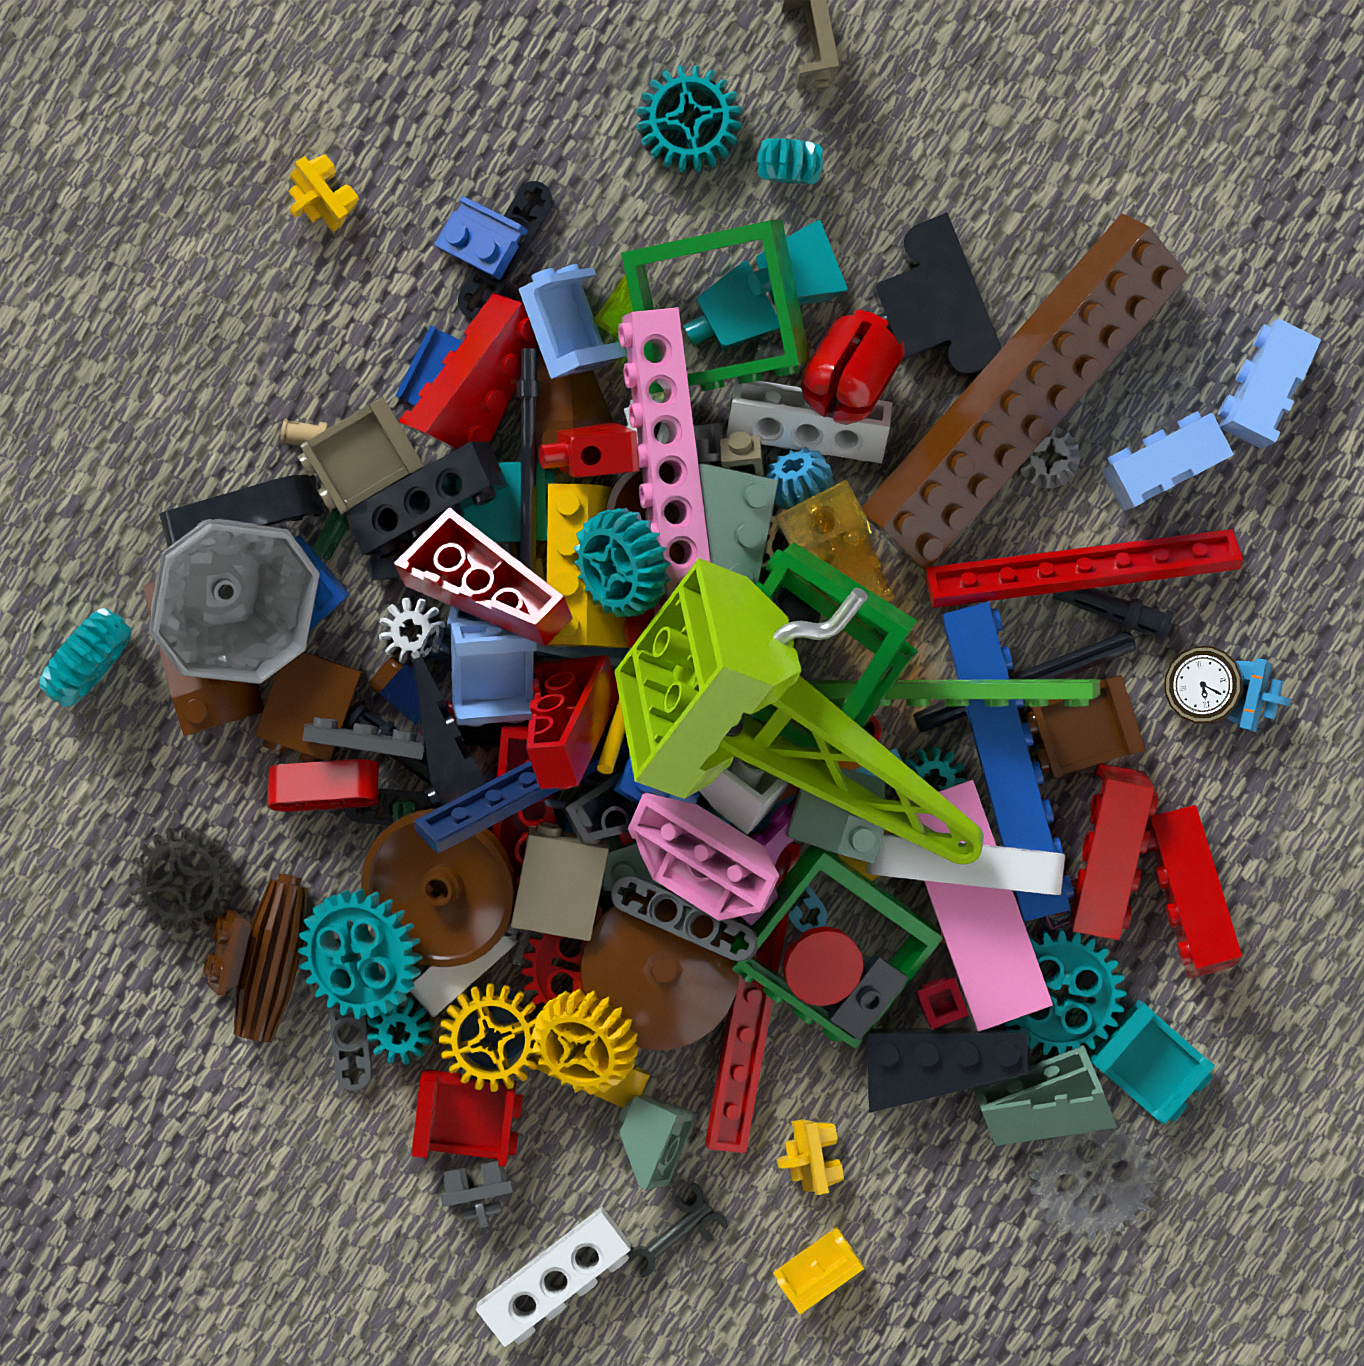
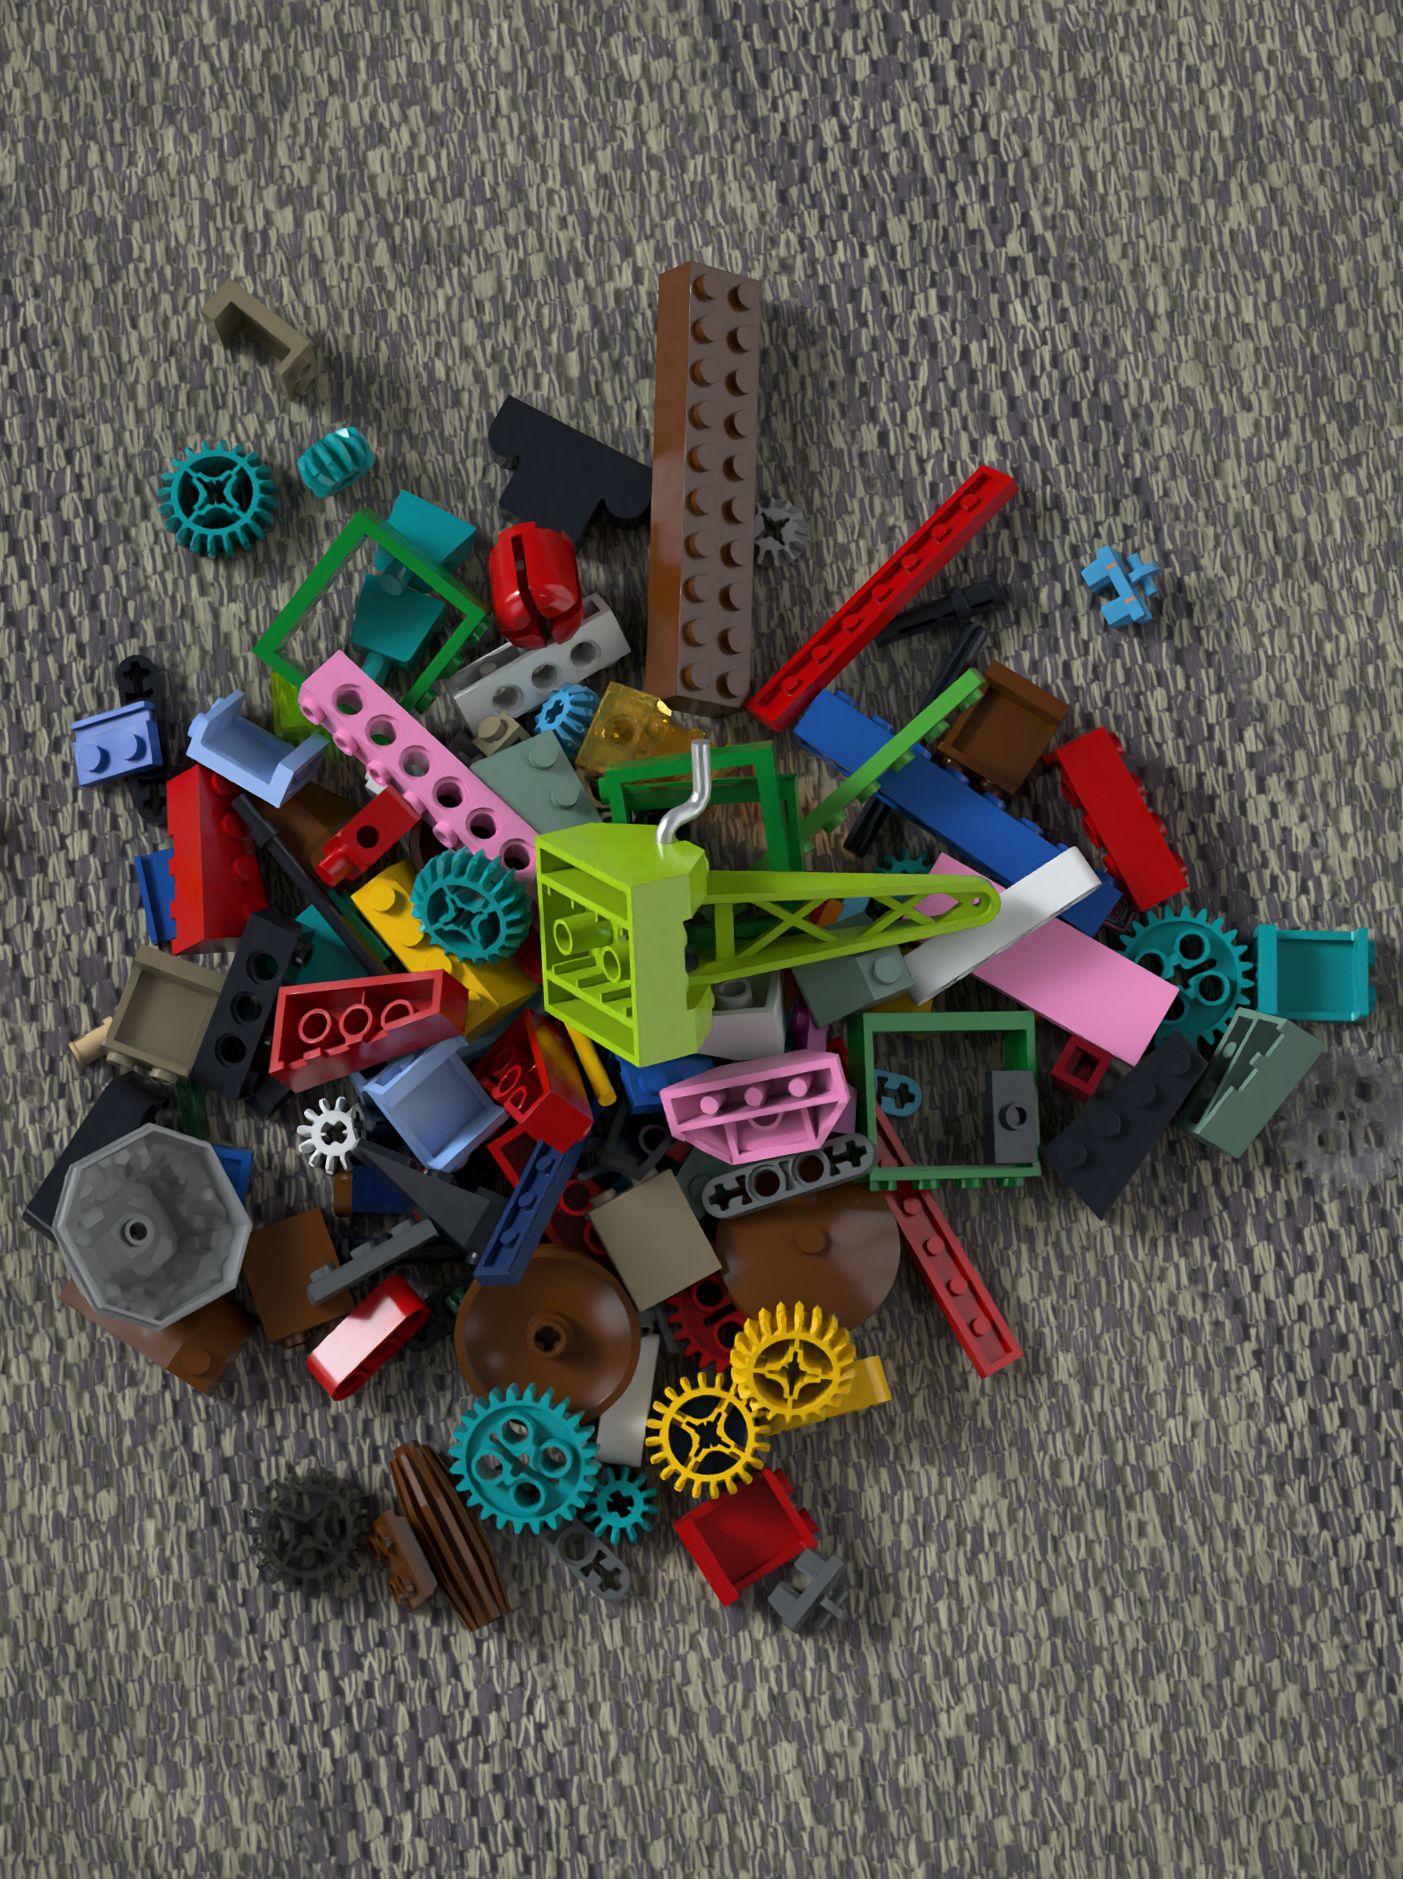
camera: 45 degrees left, 10 degrees down
(85, 657) = (57, 1399): teal gear -> none
(514, 1325) = (919, 1682): white brick -> none
(654, 1138) = (930, 1404): sand green slope -> none
(698, 1213) = (1029, 1446): pearl dark grey bar -> none
(806, 1156) = (1082, 1311): yellow hips -> none
(818, 1270) = (1178, 1406): yellow hinge -> none
(822, 966) = (948, 1119): red tile -> none
(1166, 460) = (875, 451): light blue wedge -> none
(1192, 892) = (1220, 796): red wedge -> none
(1204, 685) = (1072, 612): tile -> none
(1268, 383) = (907, 317): light blue wedge -> none

